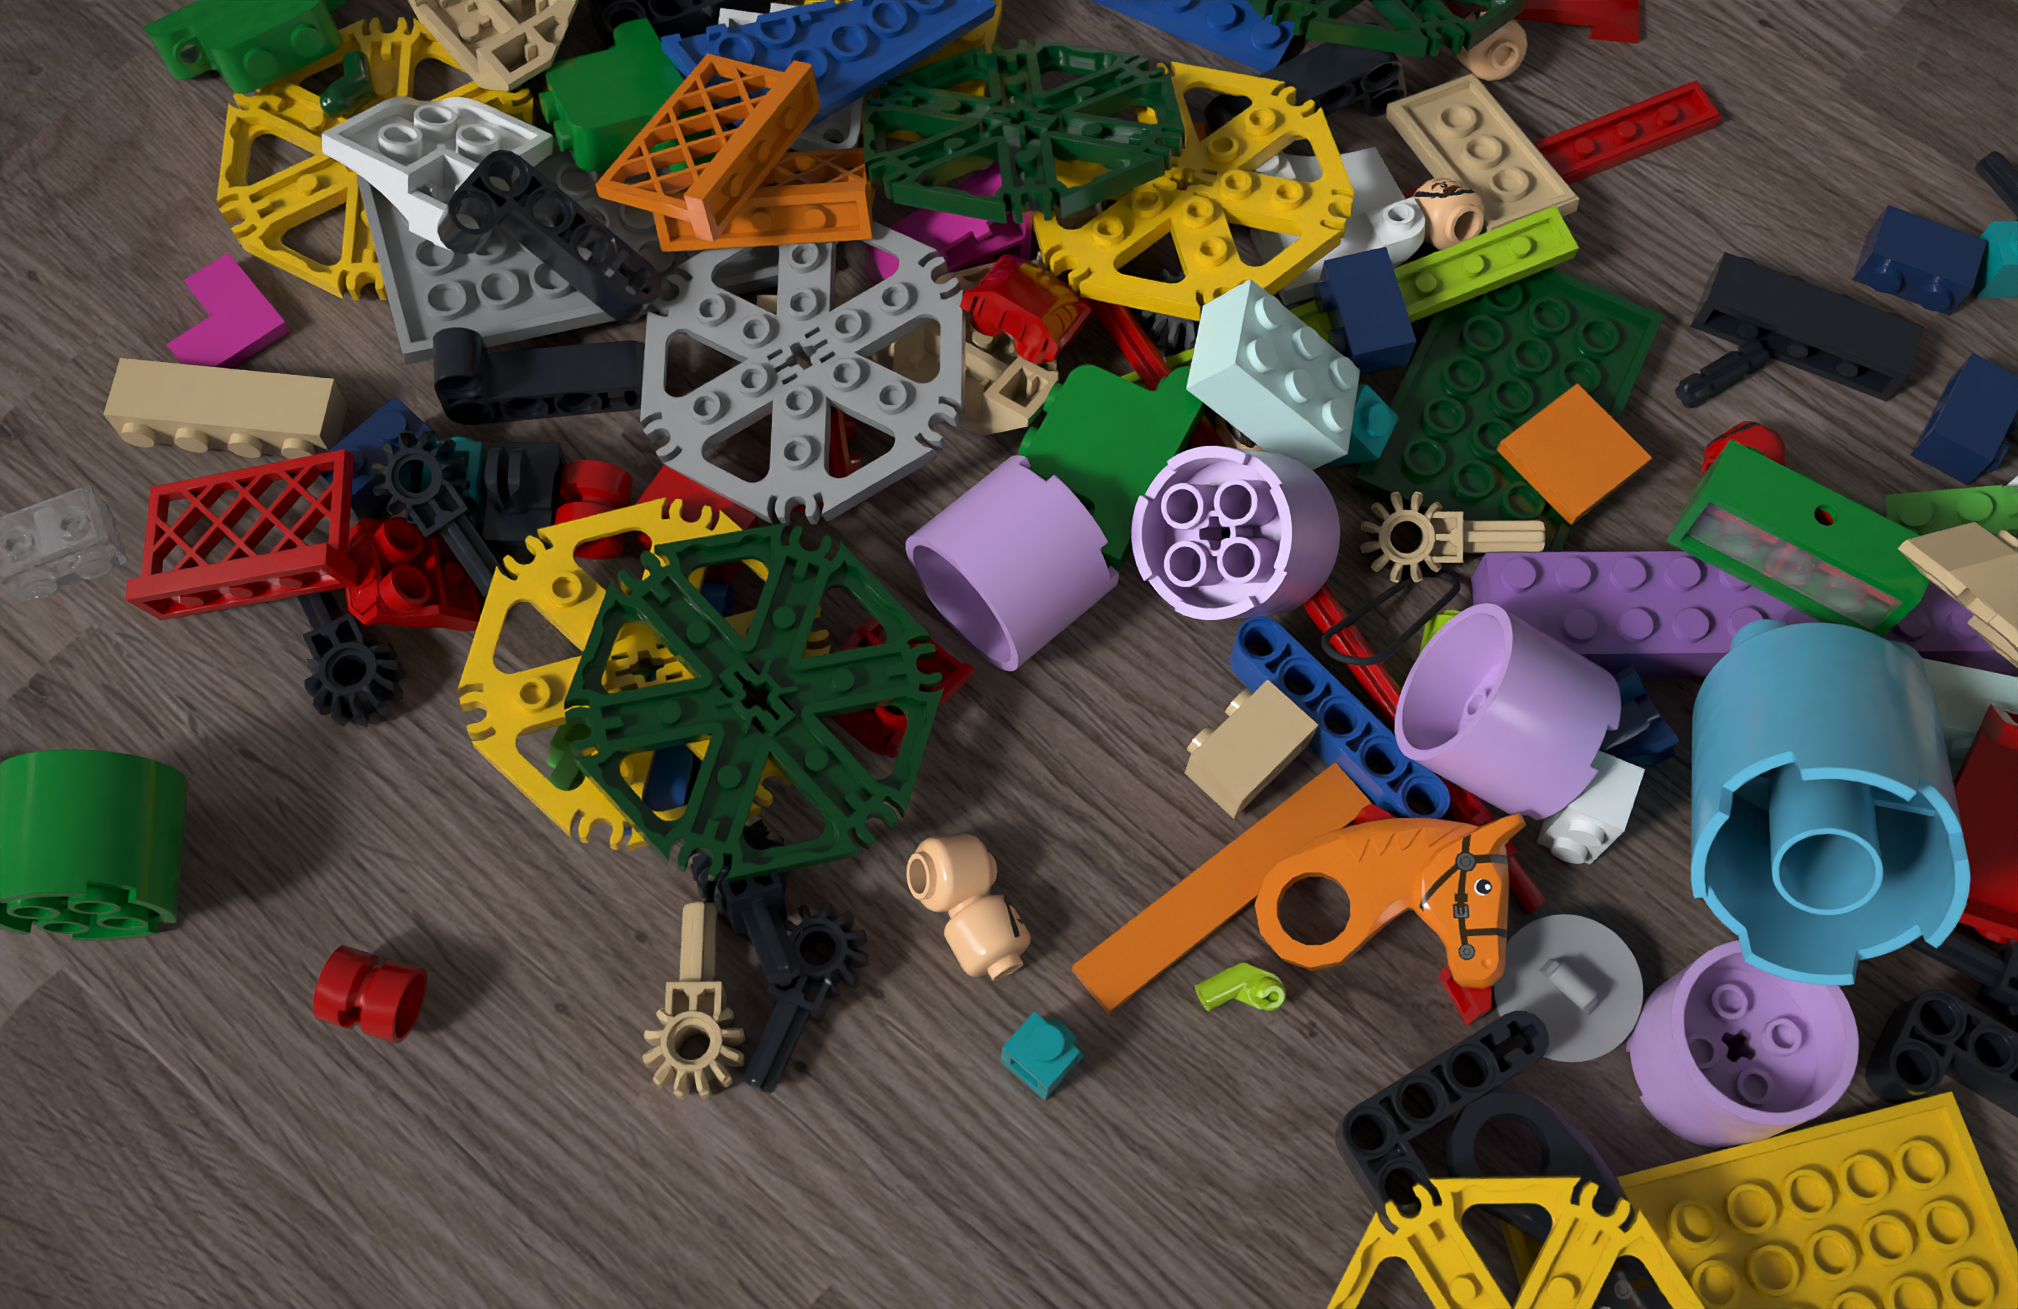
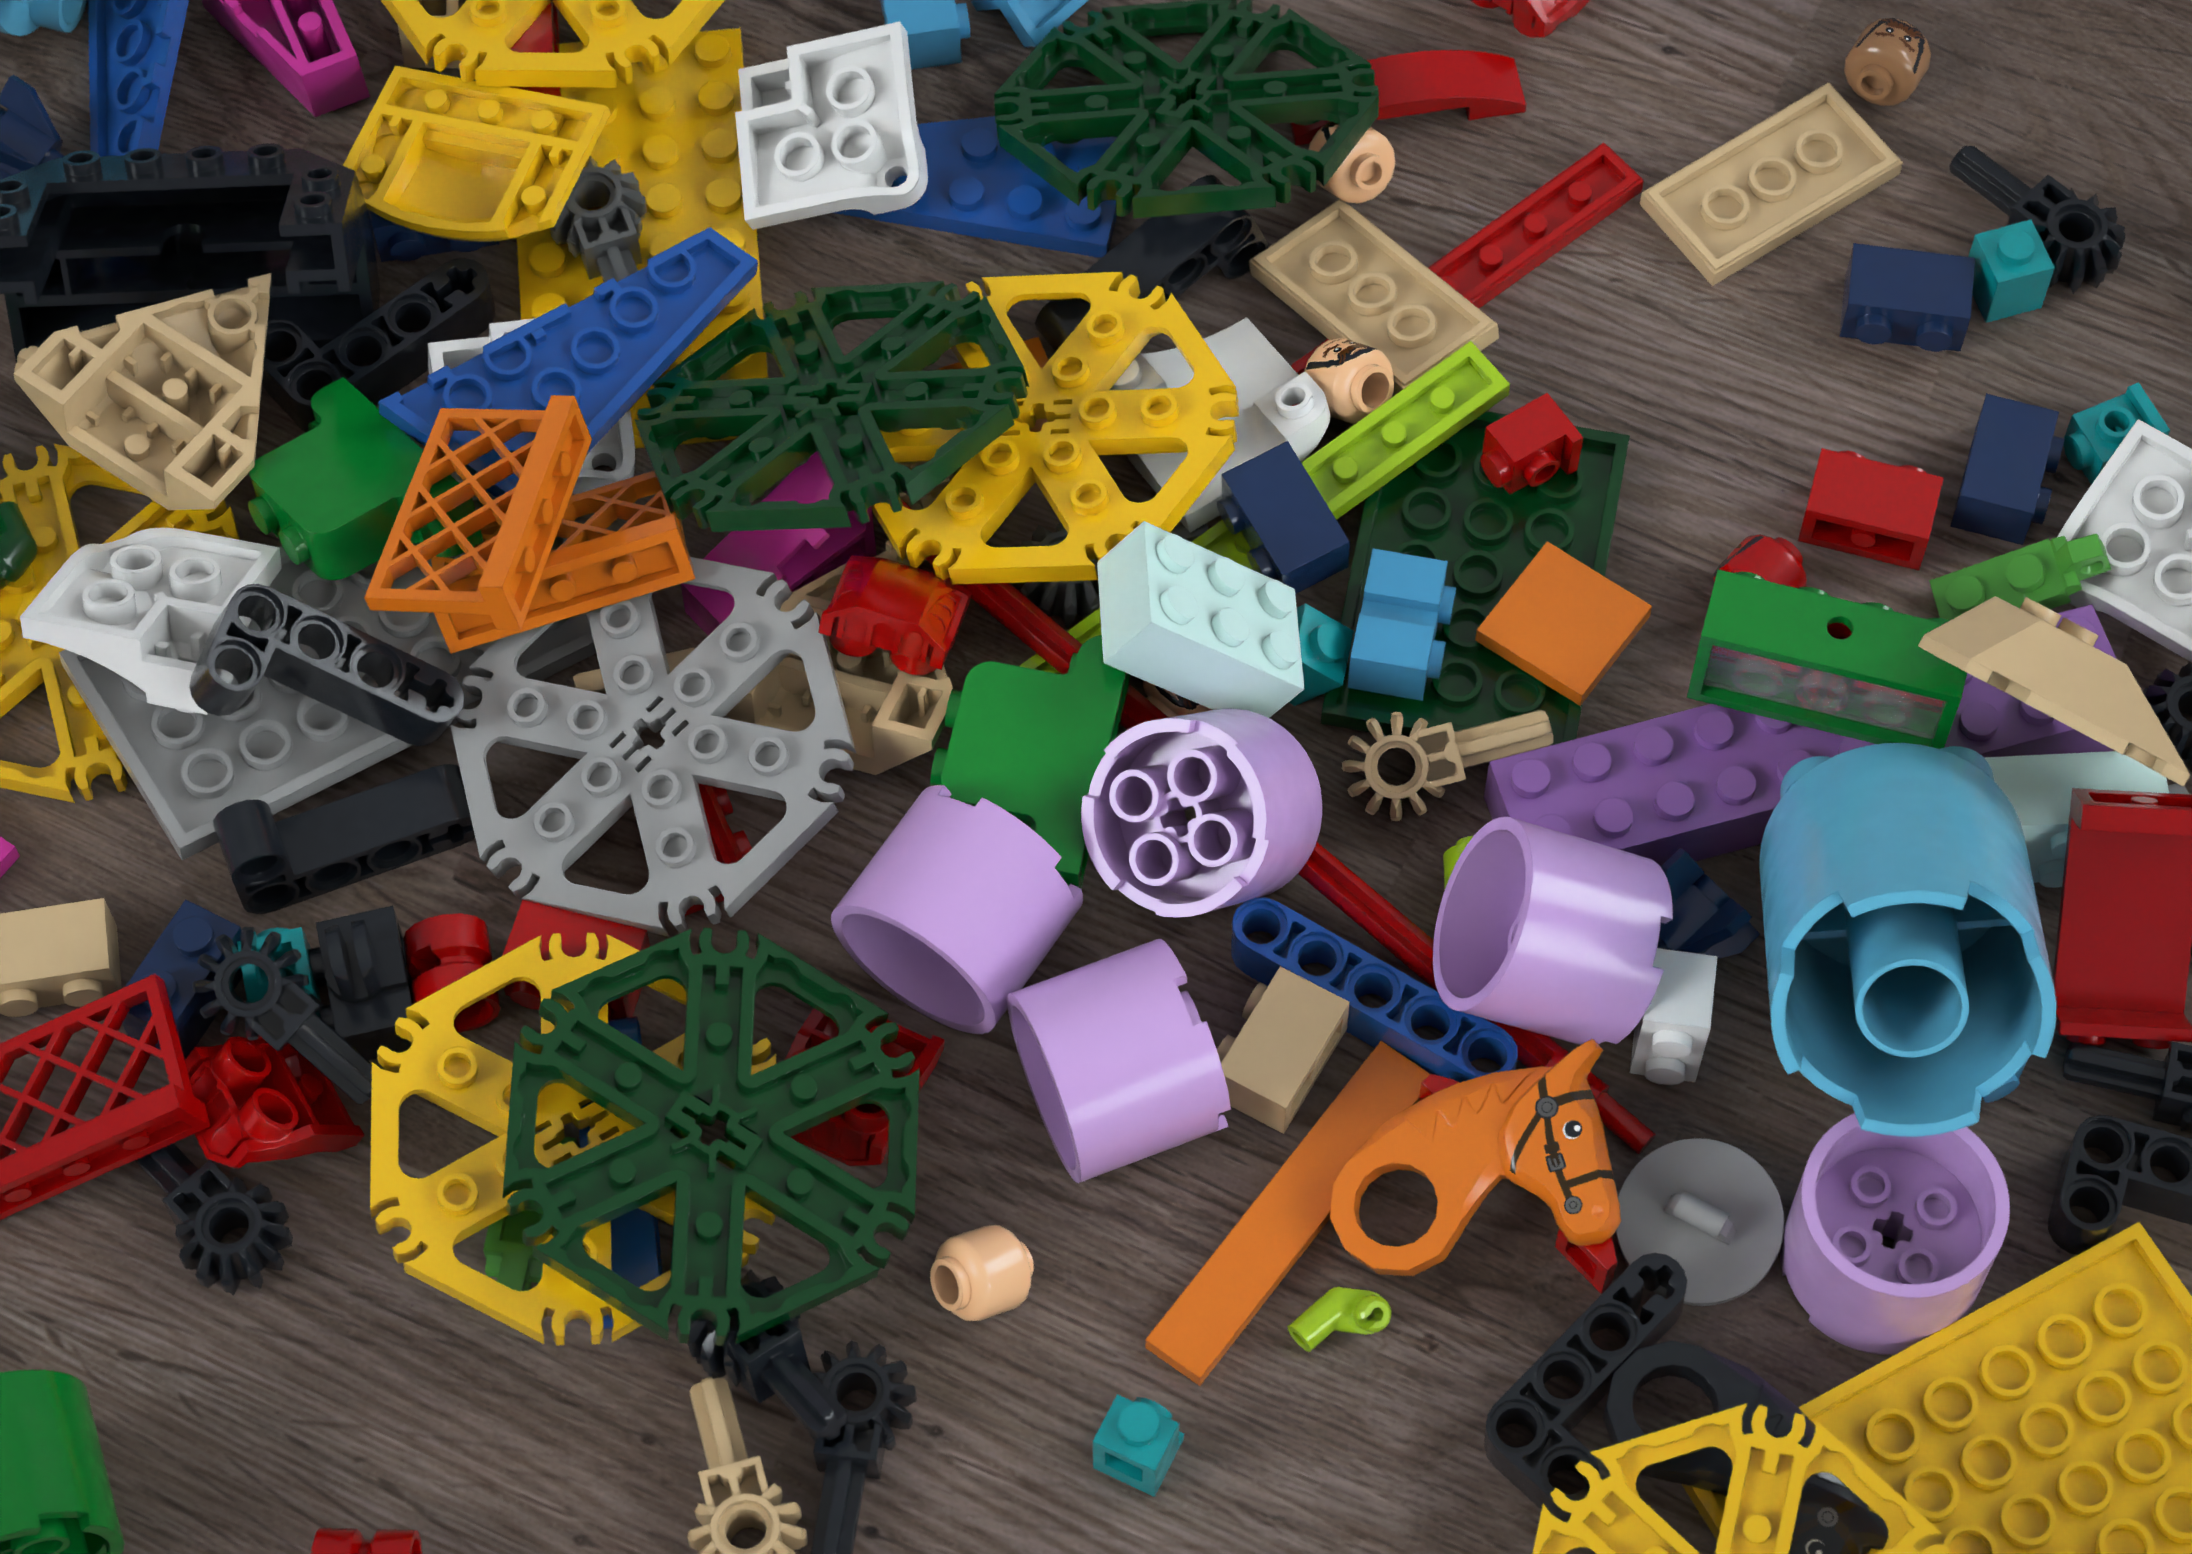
camera: 10 degrees left, 5 degrees down
(987, 936) = (1041, 1332): light nougat head -> none
(1113, 724) = (1118, 1060): none -> lavender brick
(1365, 661) = (1384, 846): black piece -> none
(1437, 421) = (1399, 623): none -> dark azure brick
(1583, 302) = (1530, 445): none -> red brick
(1722, 373) = (1713, 486): black axle -> none
(1808, 326) = (1794, 405): black brick -> none
(1824, 145) = (1770, 184): none -> tan tile
(1851, 424) = (1871, 508): none -> red brick
(1948, 67) = (1888, 58): none -> medium nougat head

